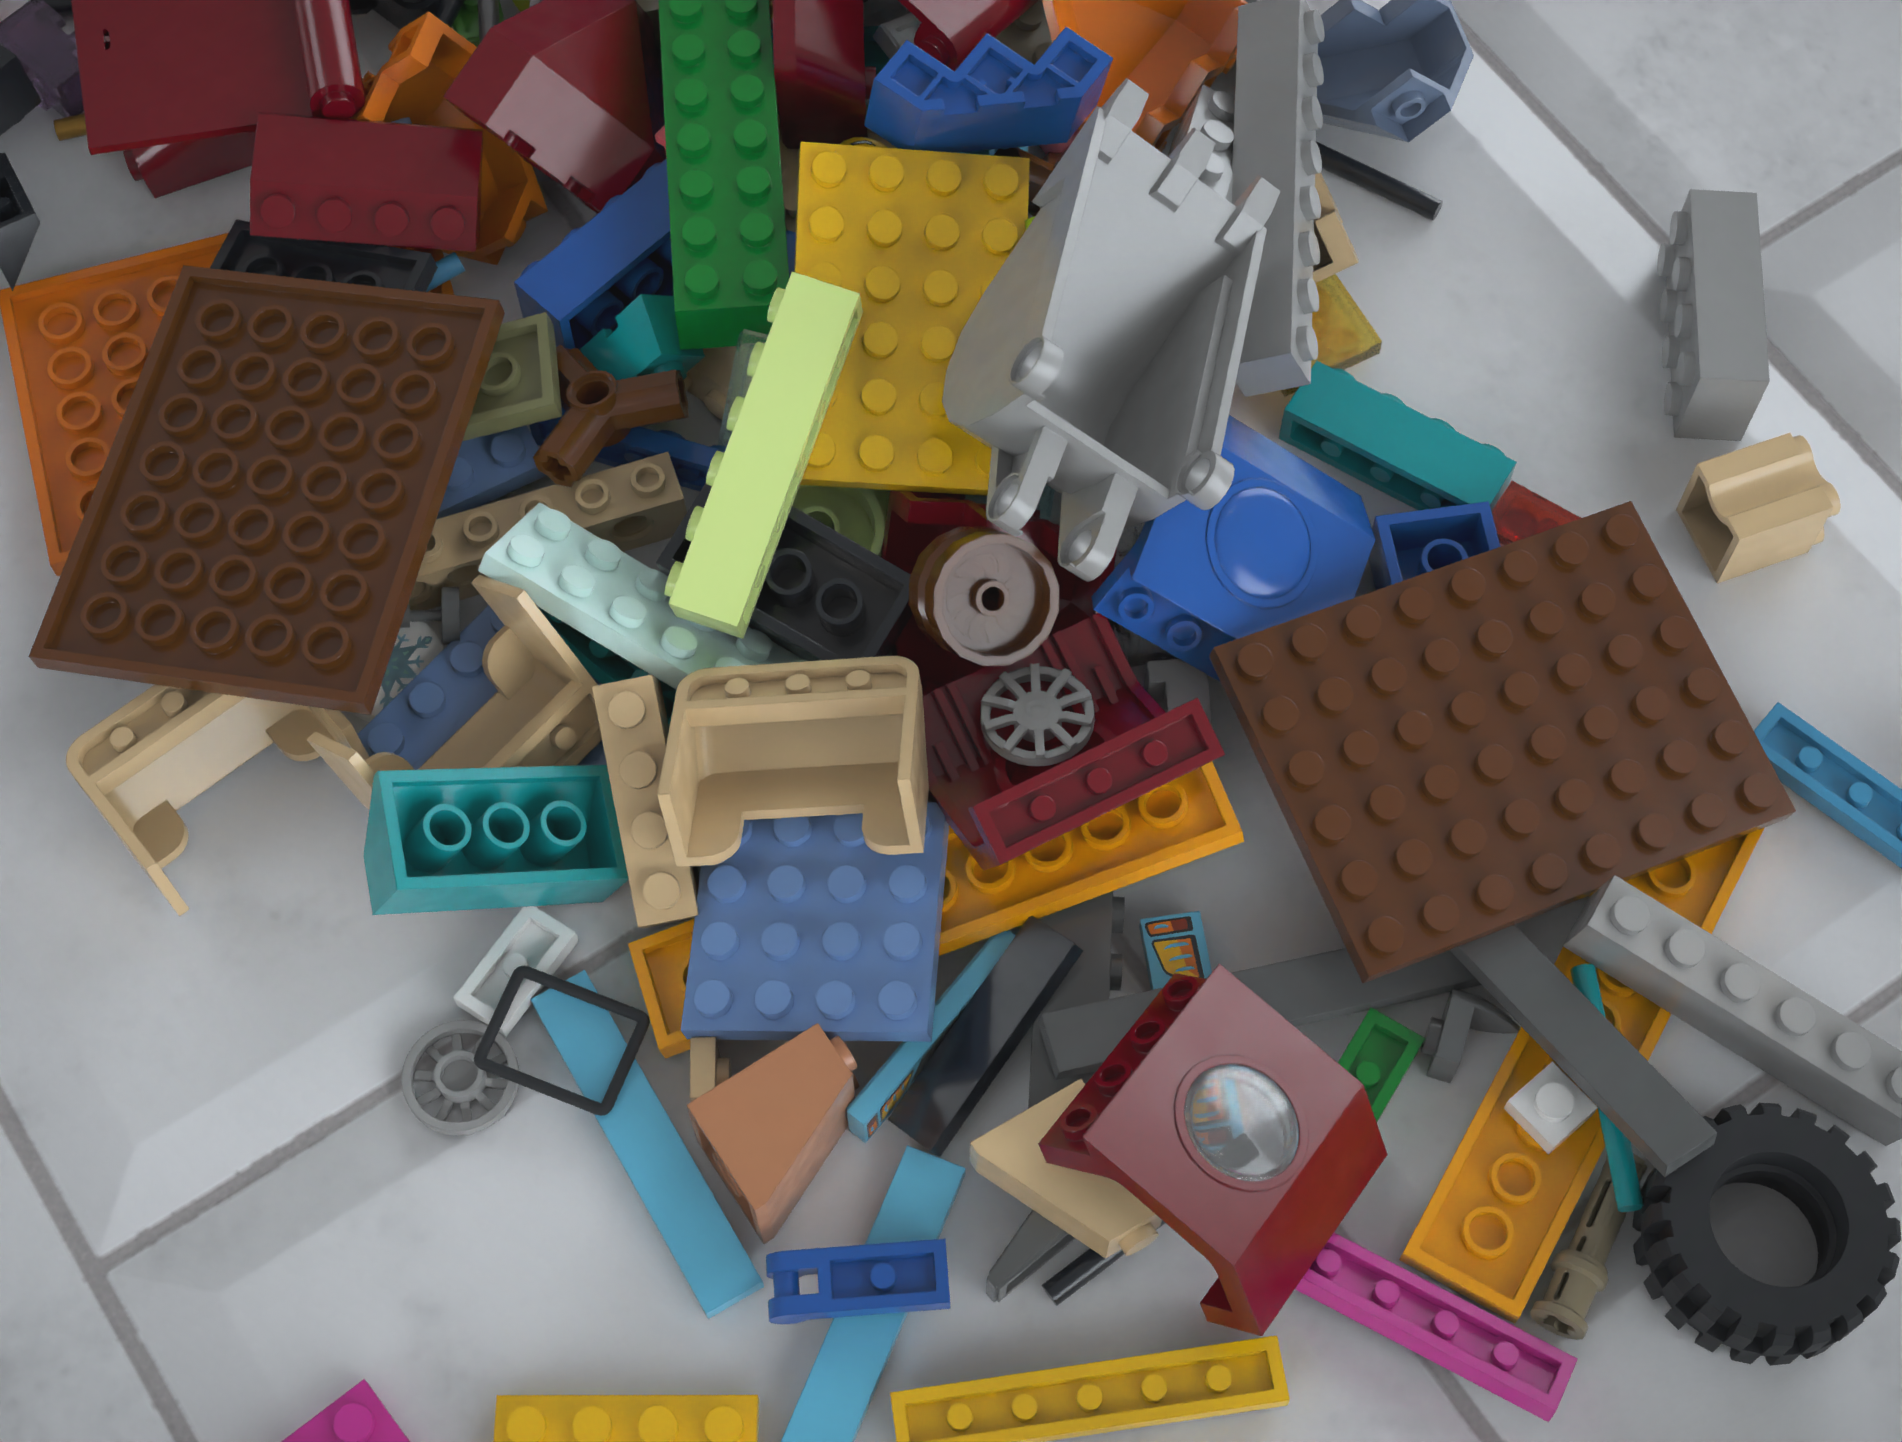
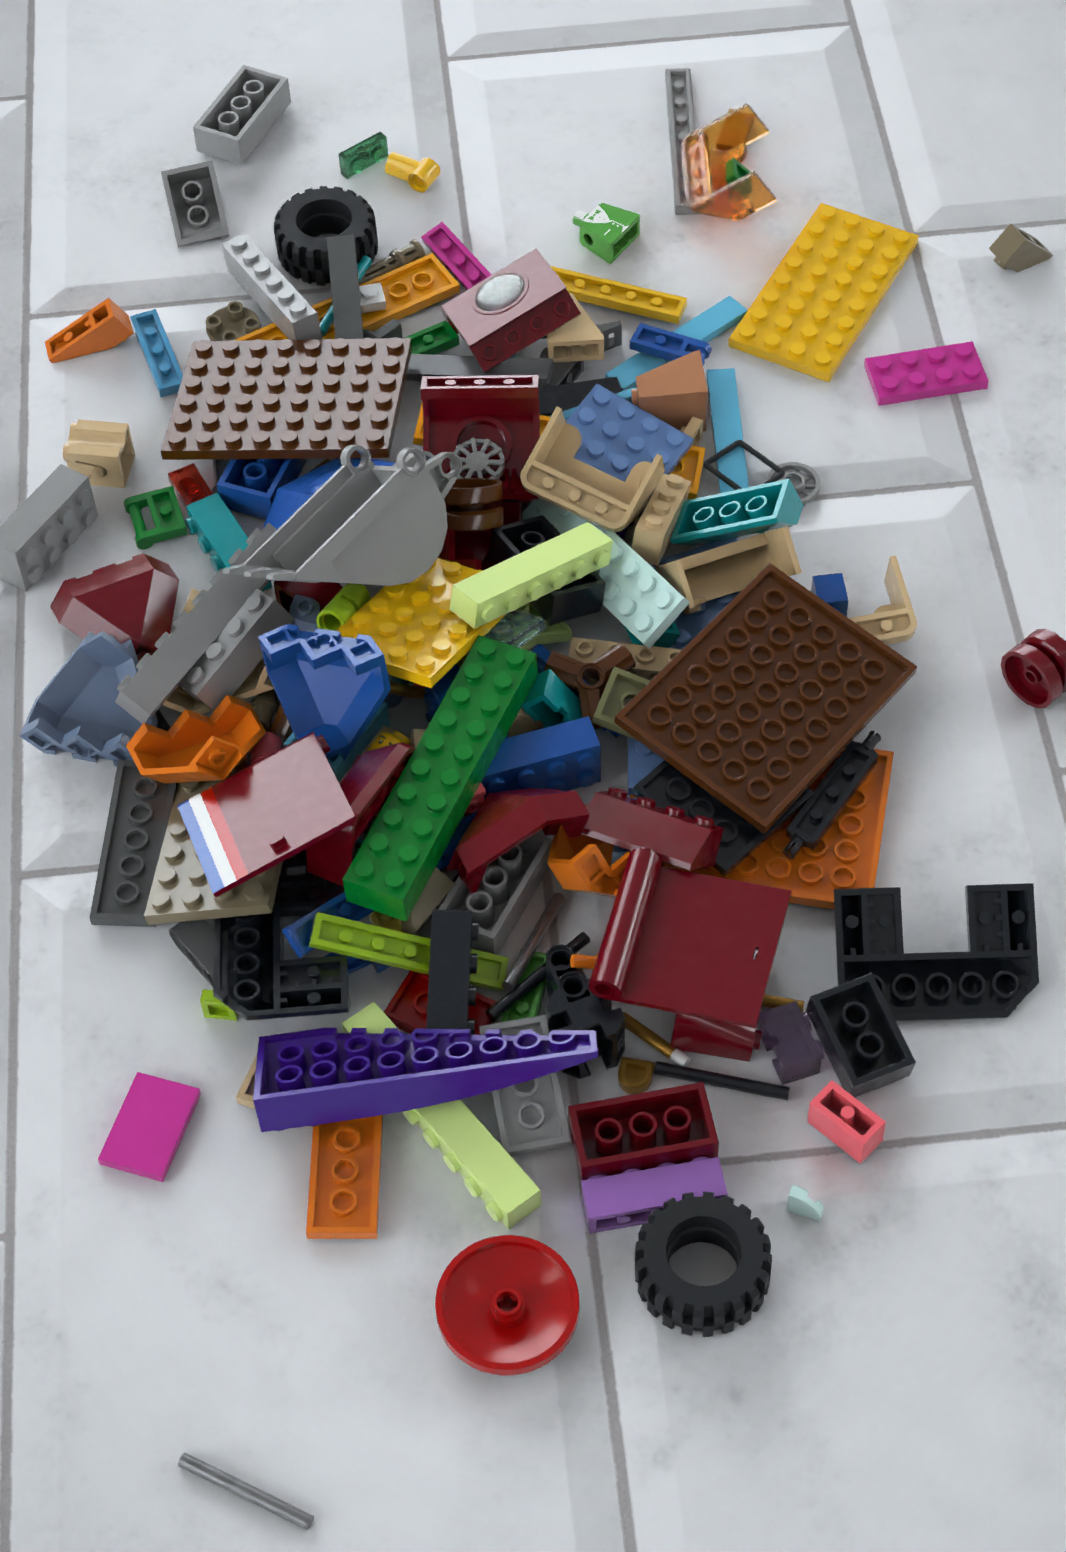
camera: 150 degrees left, 10 degrees down
(118, 373) = (832, 795): none -> black plate
(278, 824) = (831, 590): none -> blue brick
(1462, 234) = (123, 601): none -> dark red panel
(1558, 468) = (165, 516): none -> green plate
(1779, 928) = (231, 322): none -> dark tan dish

